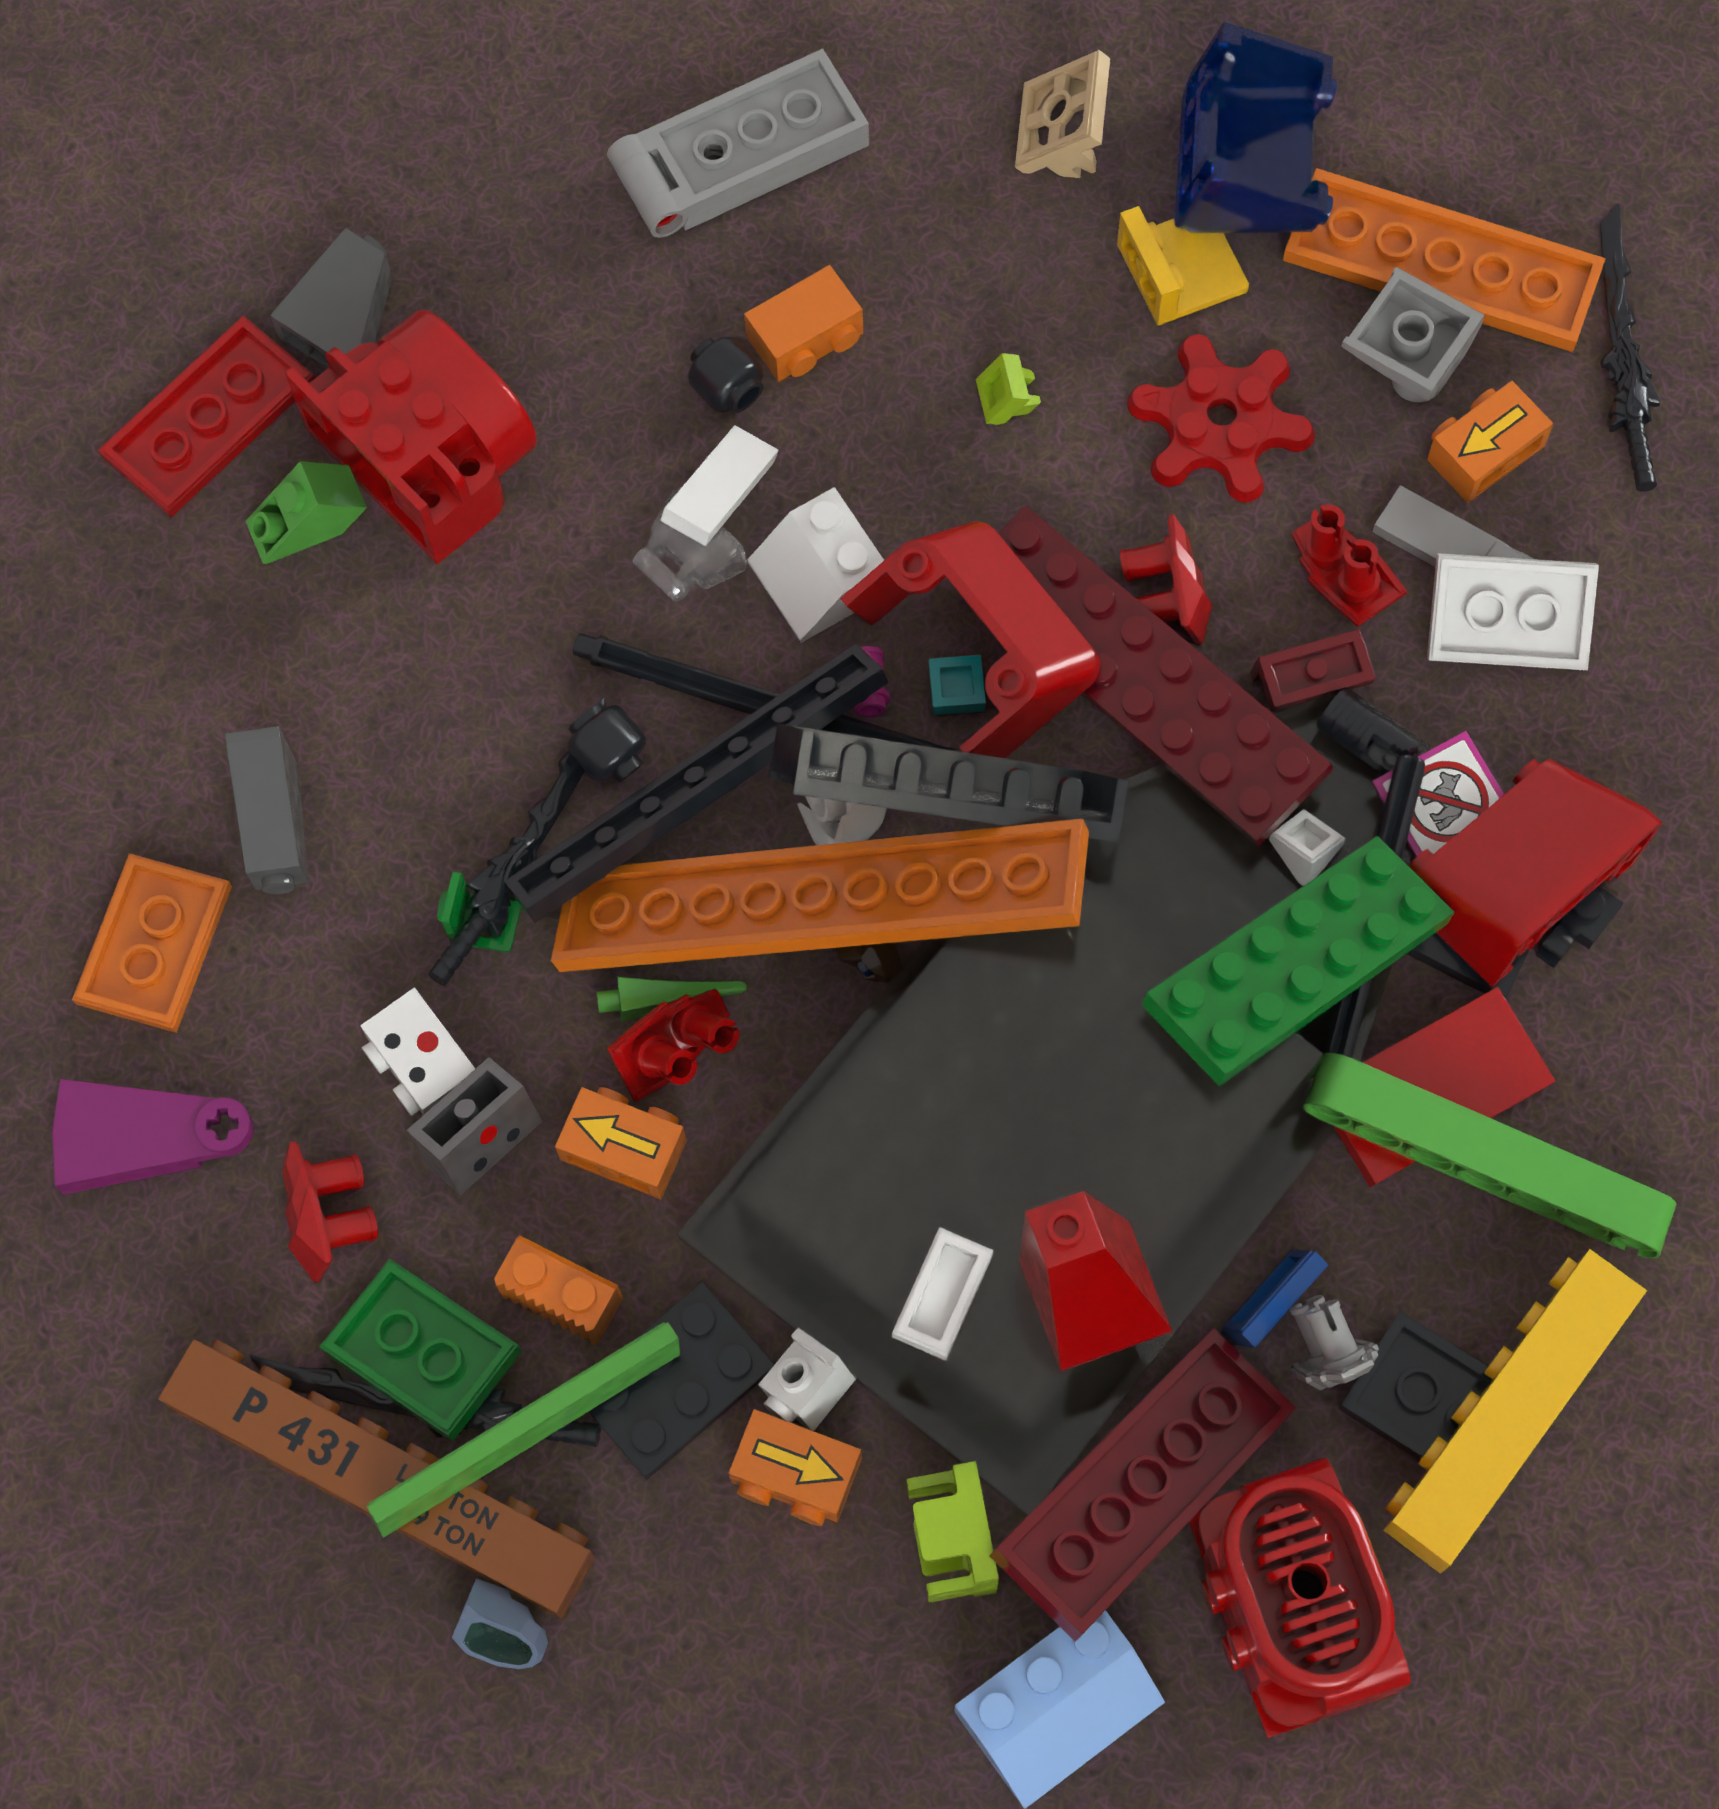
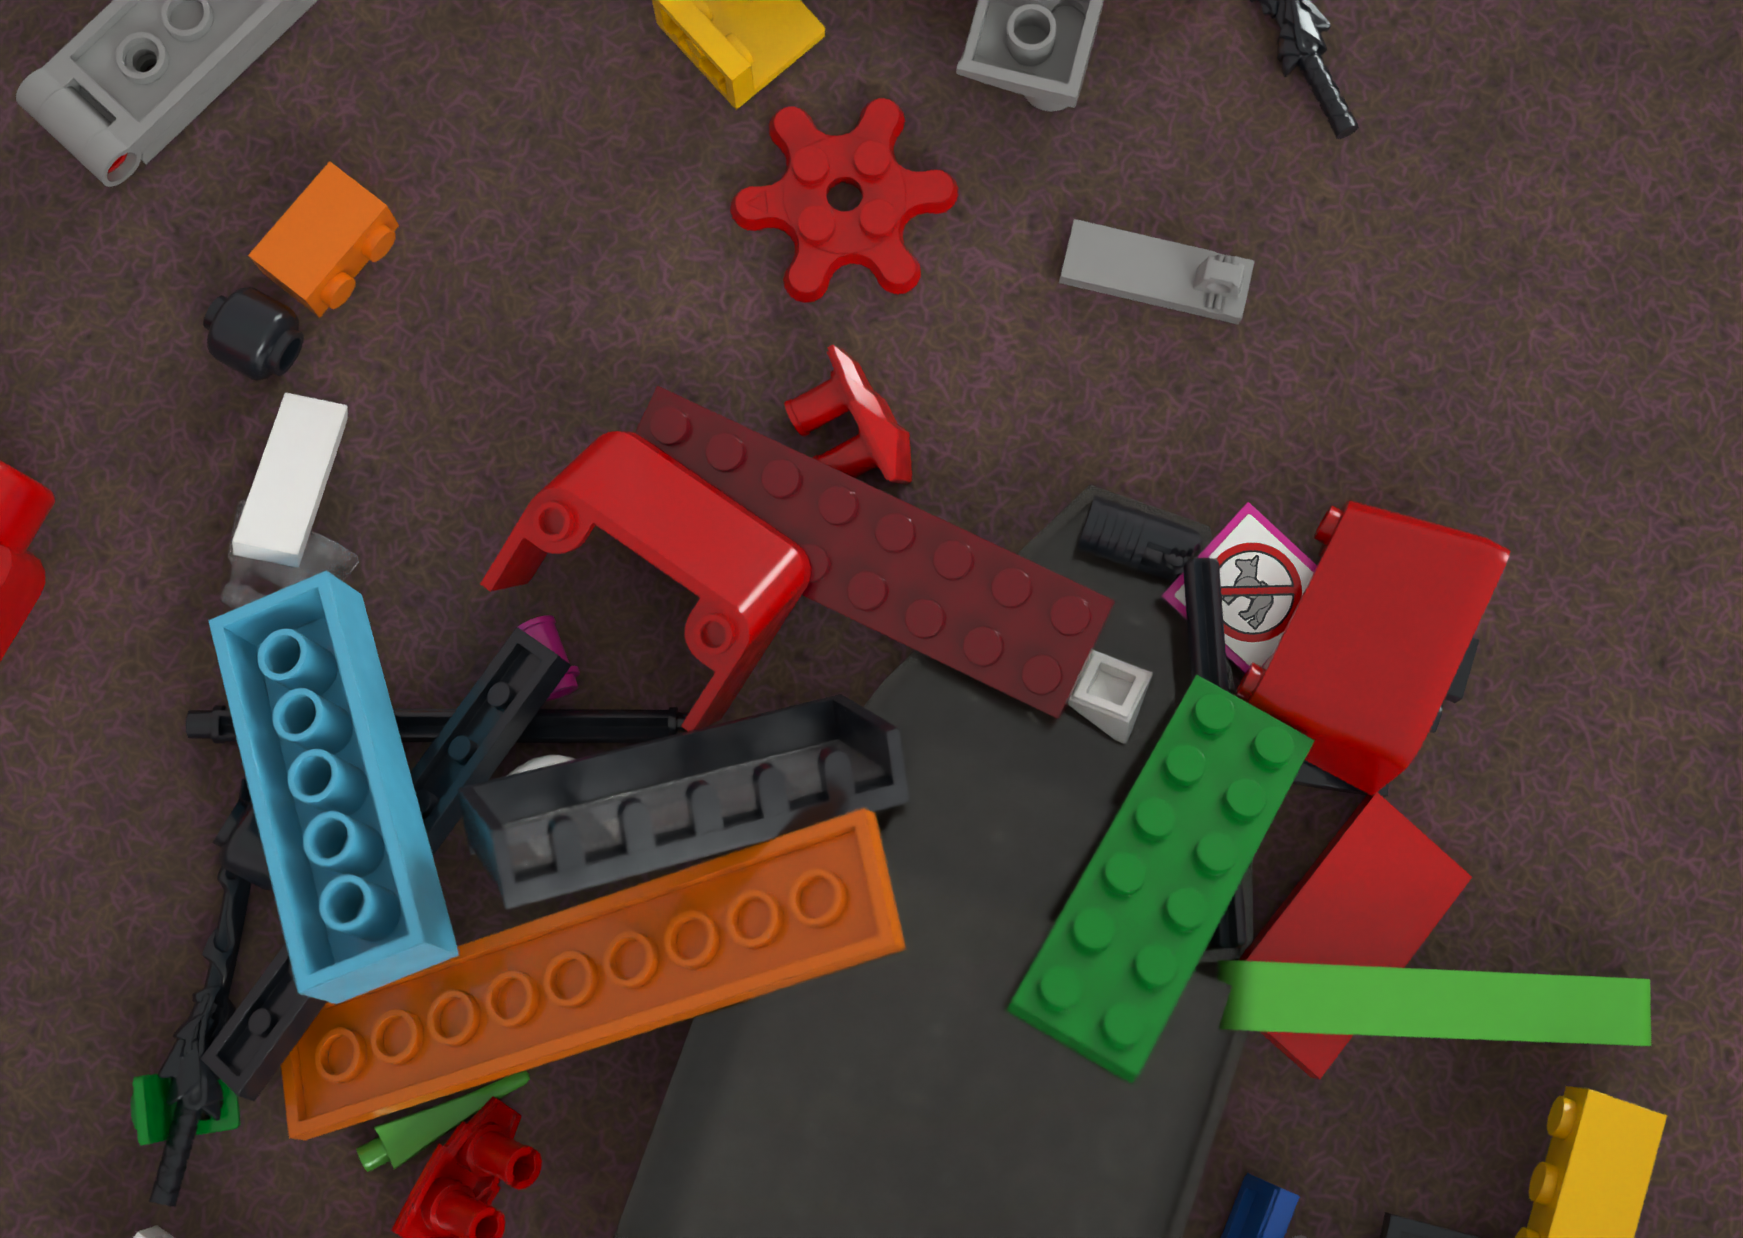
camera: 25 degrees left, 10 degrees up
(678, 706) = (331, 790): none -> medium azure brick
(814, 562) = (437, 535): white slope -> none
(957, 685) = (649, 628): teal plate -> none
(1005, 391) = (586, 248): lime tile -> none
(1314, 670) = (1054, 482): dark red panel -> none
(1345, 568) = (1046, 340): red connector -> none
(1488, 440) = (1157, 133): orange brick -> none
(1512, 611) = (1250, 334): white tile -> none

